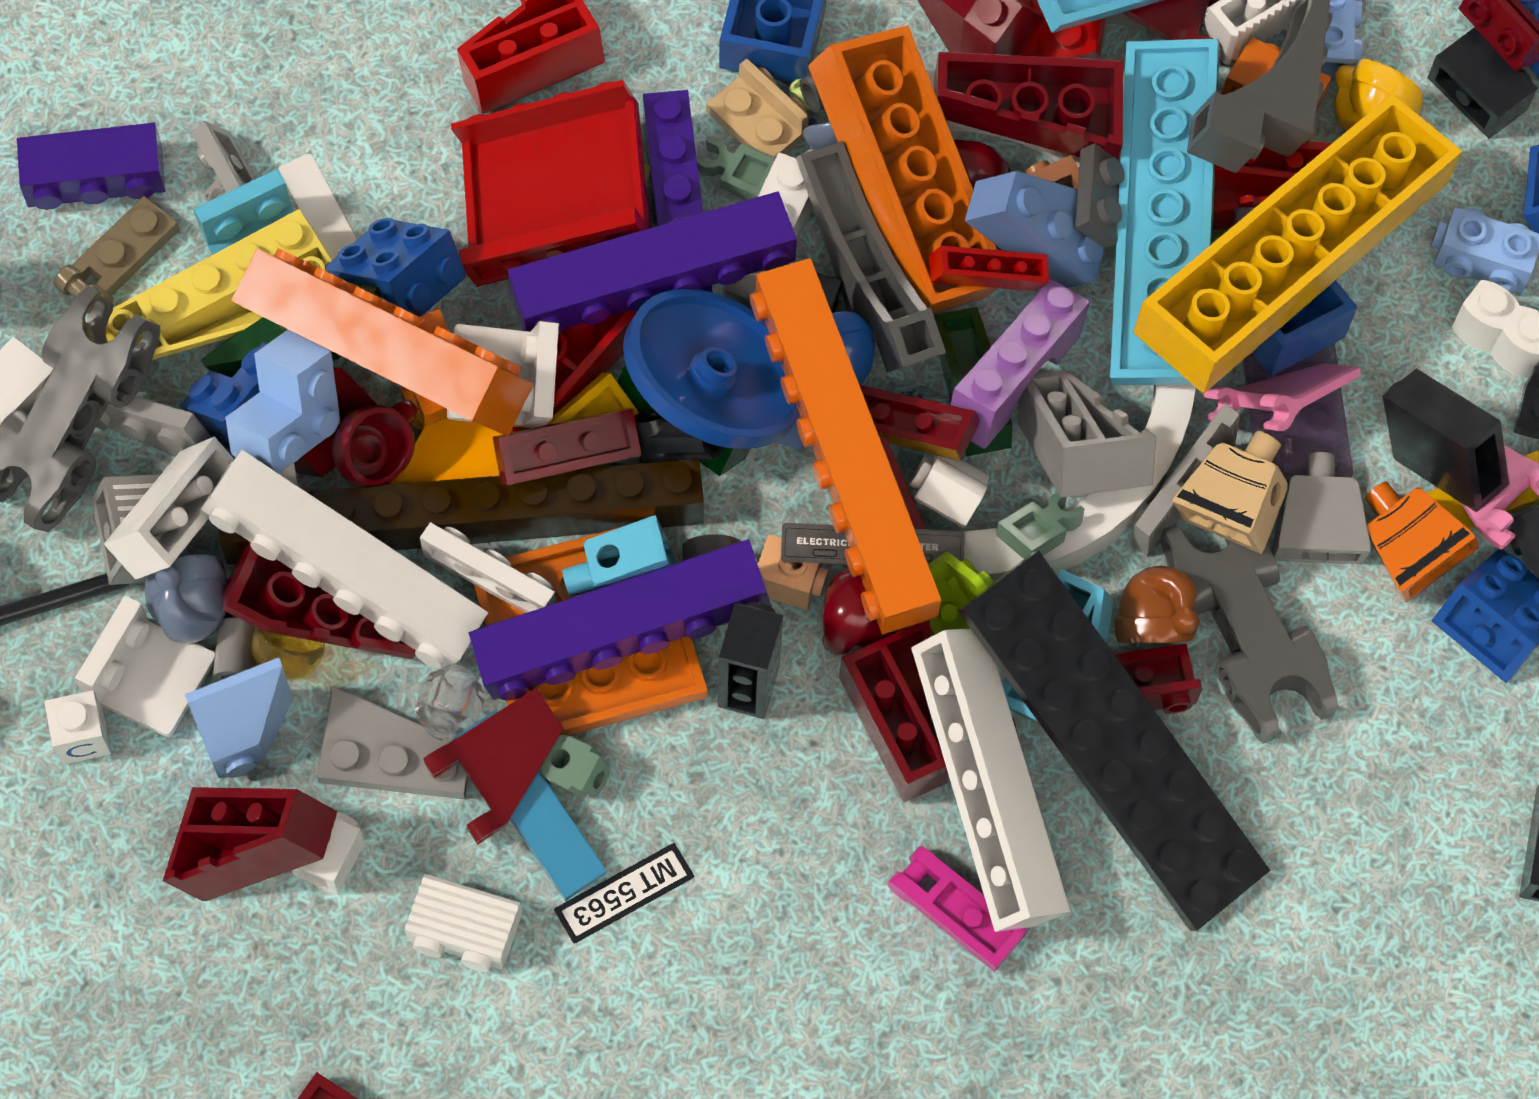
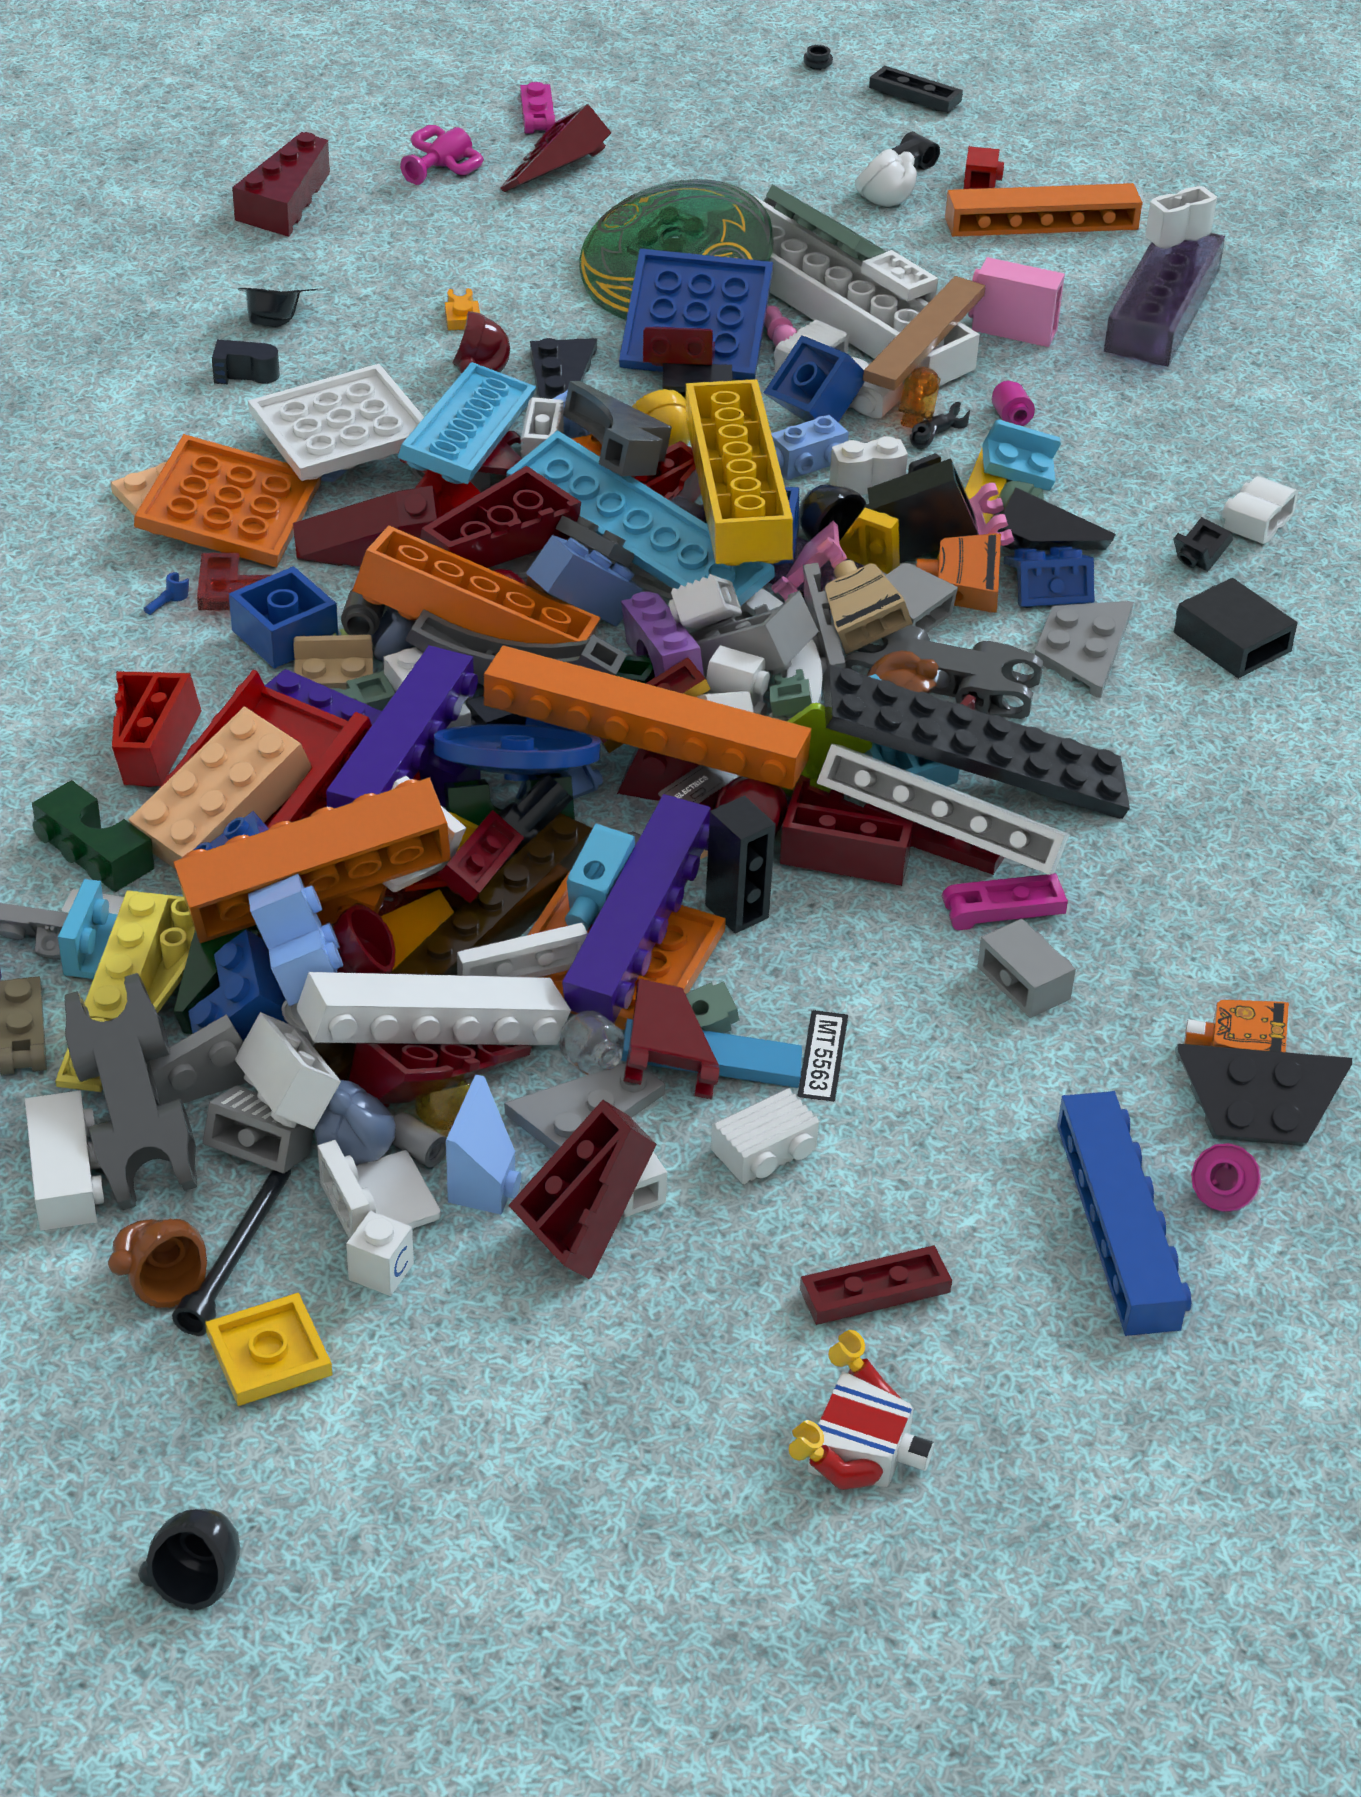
camera: 50 degrees left, 25 degrees down
(368, 84) = (73, 825): none -> dark green arch
(481, 177) = (236, 772): none -> light nougat brick
(872, 992) = (1026, 968): none -> light grey brick
(989, 268) = (587, 609): red piece -> none
(1016, 468) = (739, 671): none -> white brick
(1079, 364) = (704, 602): none -> white brick
(1371, 428) = (873, 540): none -> yellow wing
(1383, 350) = (829, 504): none -> black piece
(1430, 715) = (1084, 641): none -> light grey wing

